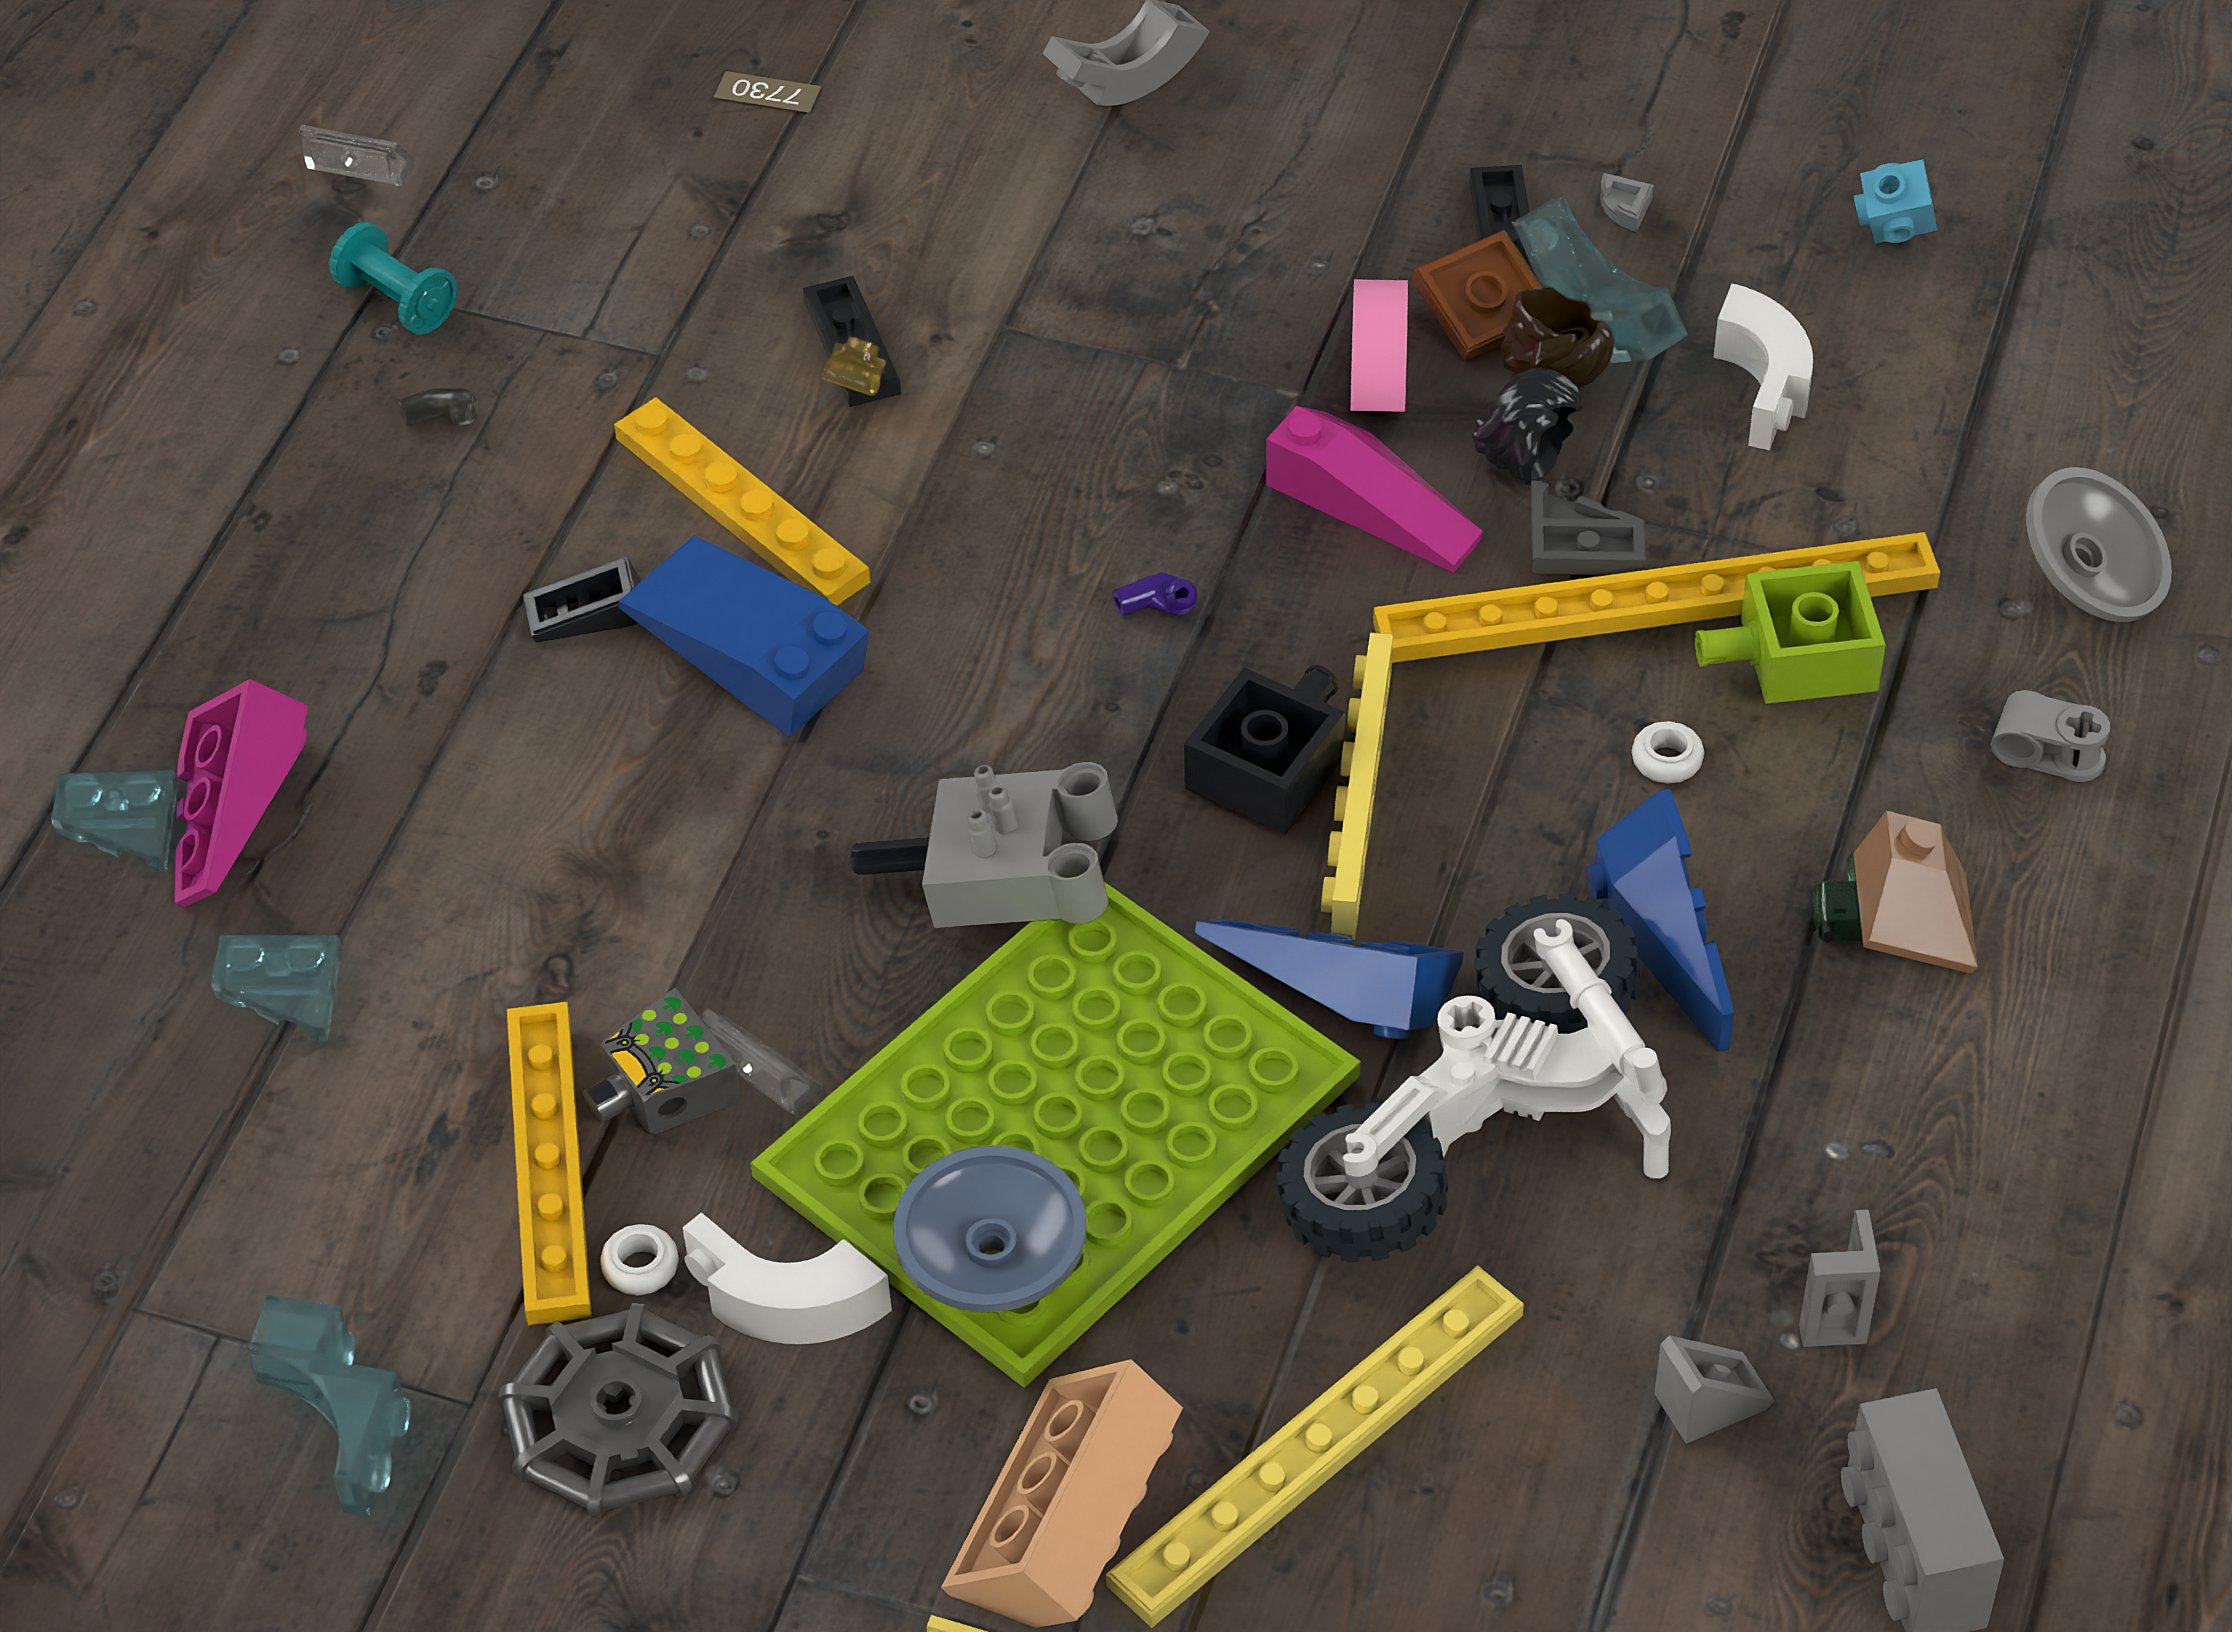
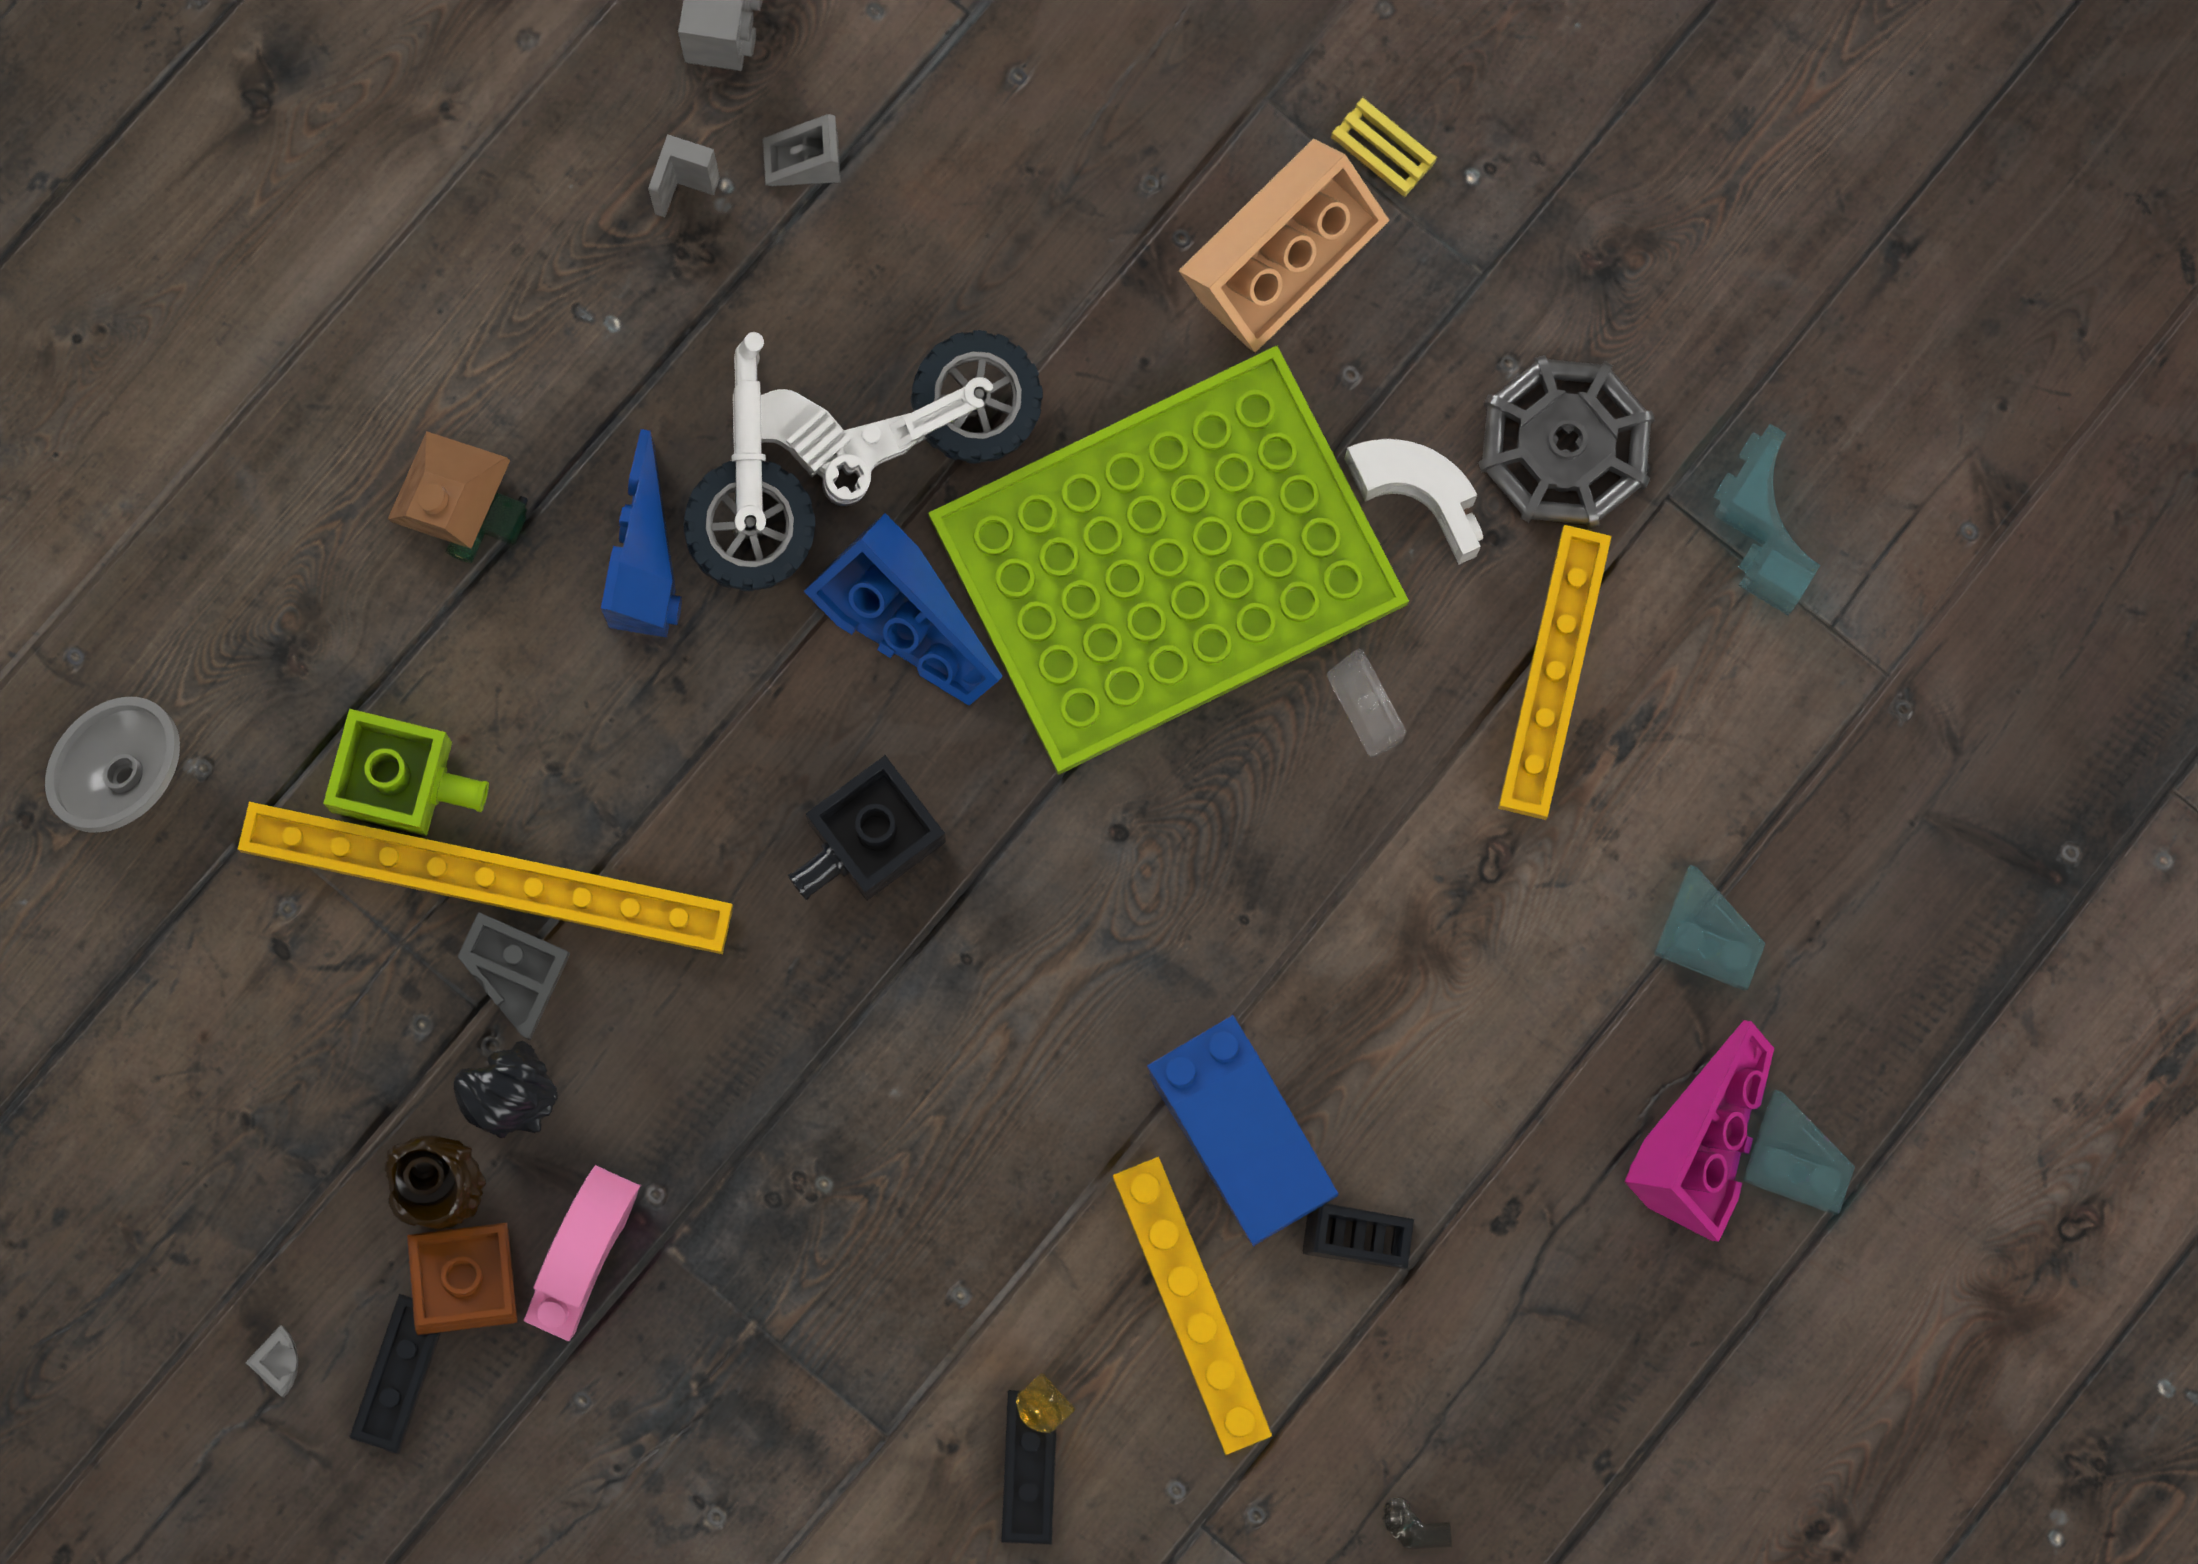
camera: 165 degrees left, 30 degrees up
(642, 1279) = (1507, 582): white piece -> none
(663, 1068) = (1446, 717): flat silver torso -> none
(986, 1203) = (1270, 404): sand blue dish -> none
(1000, 849) = (1125, 813): light grey piece -> none
(1158, 592) = (881, 1054): dark purple arm -> none
(1313, 1446) = (1088, 229): light yellow tile -> none
(1355, 803) = (822, 760): light yellow plate -> none
(1366, 486) = (659, 1112): dark pink wedge -> none
(1565, 259) = (367, 1224): clear light blue arch -> none
(1663, 768) = (558, 743): white piece -> none
(1774, 350) = (249, 1092): white arch -> none
(1896, 202) = (53, 1231): medium azure brick -> none
(2047, 733) = (260, 612): light grey piece -> none

